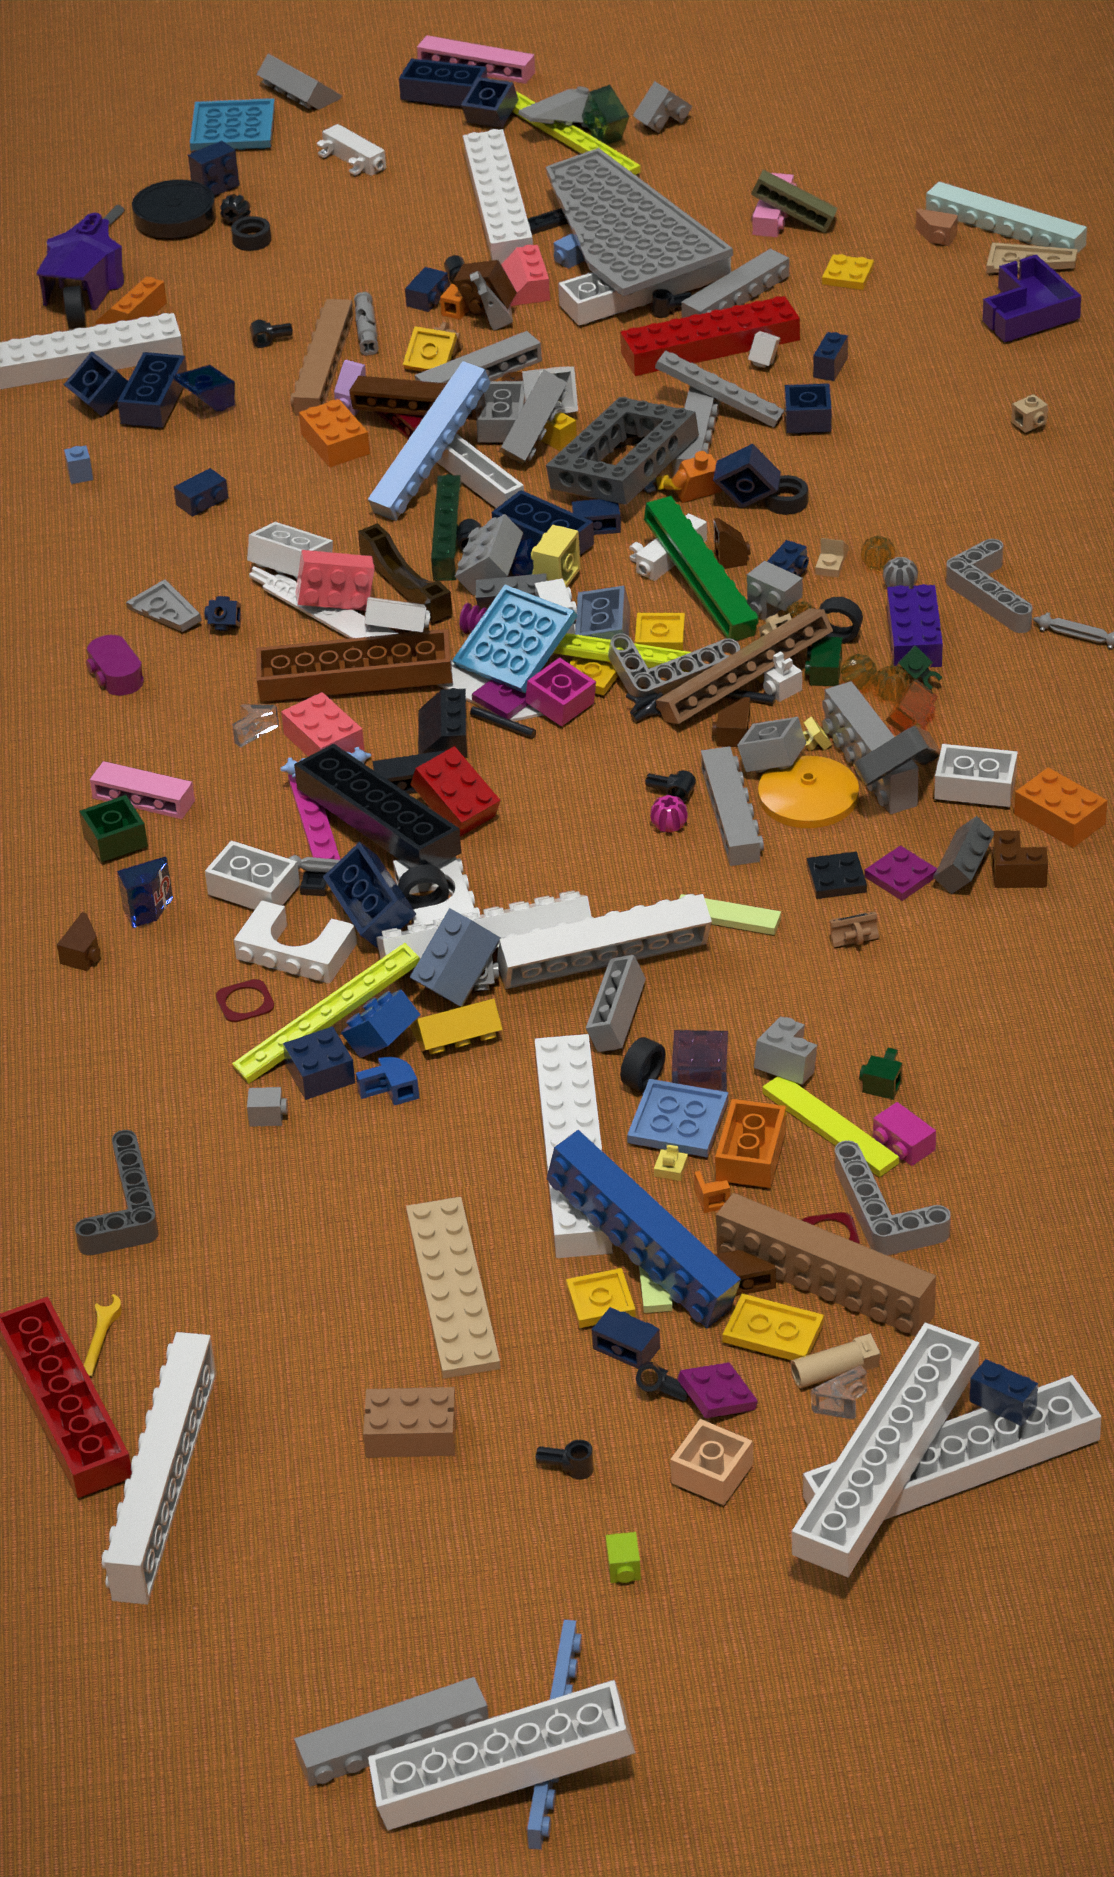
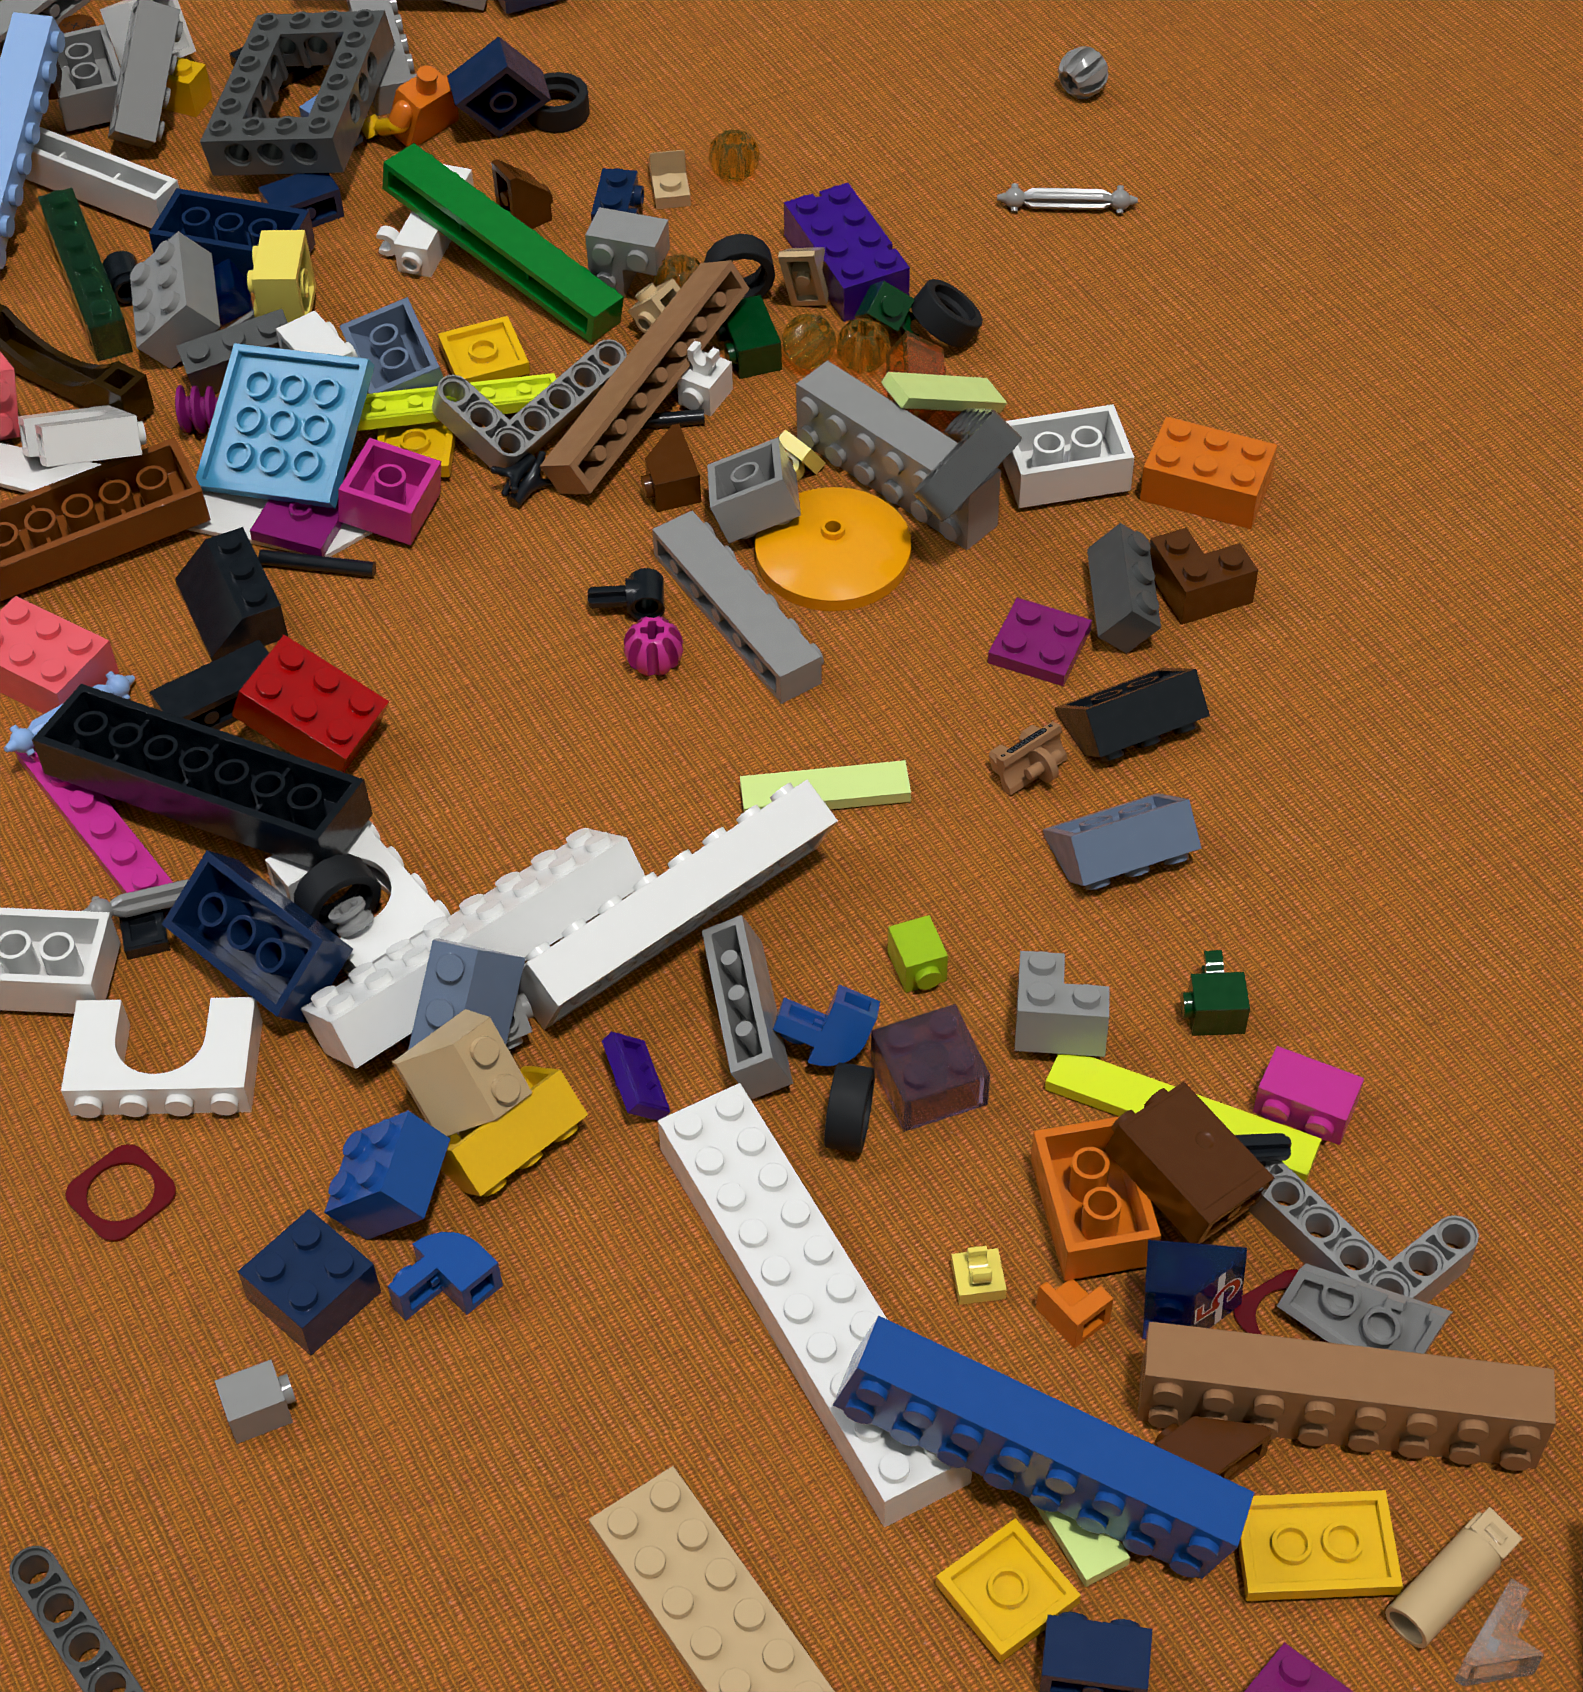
camera: 25 degrees left, 10 degrees up
(328, 1011) = (283, 1185): neon yellow tile -> none
(423, 899) = (351, 916): none -> light grey bush
(438, 983) = (462, 1074): none -> tan slope
(538, 1018) = (635, 1076): none -> dark purple plate
(659, 1025) = (832, 1035): none -> blue brick
(678, 1117) = (947, 1184): medium blue plate -> none
(727, 1006) = (917, 954): none -> lime brick
(776, 1188) = (1192, 1283): none -> clear blue slope
(807, 1135) = (1193, 1162): none -> reddish brown piece
(836, 875) = (949, 673): black plate -> none
(856, 1227) = (1361, 1313): none -> light grey wing
(875, 633) = (804, 275): none -> tan slope
(881, 985) = (1124, 839): none -> sand blue slope
(900, 572) = (782, 178): light grey piece -> none
(910, 716) = (942, 392): none -> yellowish green tile
(930, 923) = (1135, 712): none -> black slope
(953, 676) = (946, 313): none -> black tyre
(969, 577) = (876, 161): light grey beam -> none

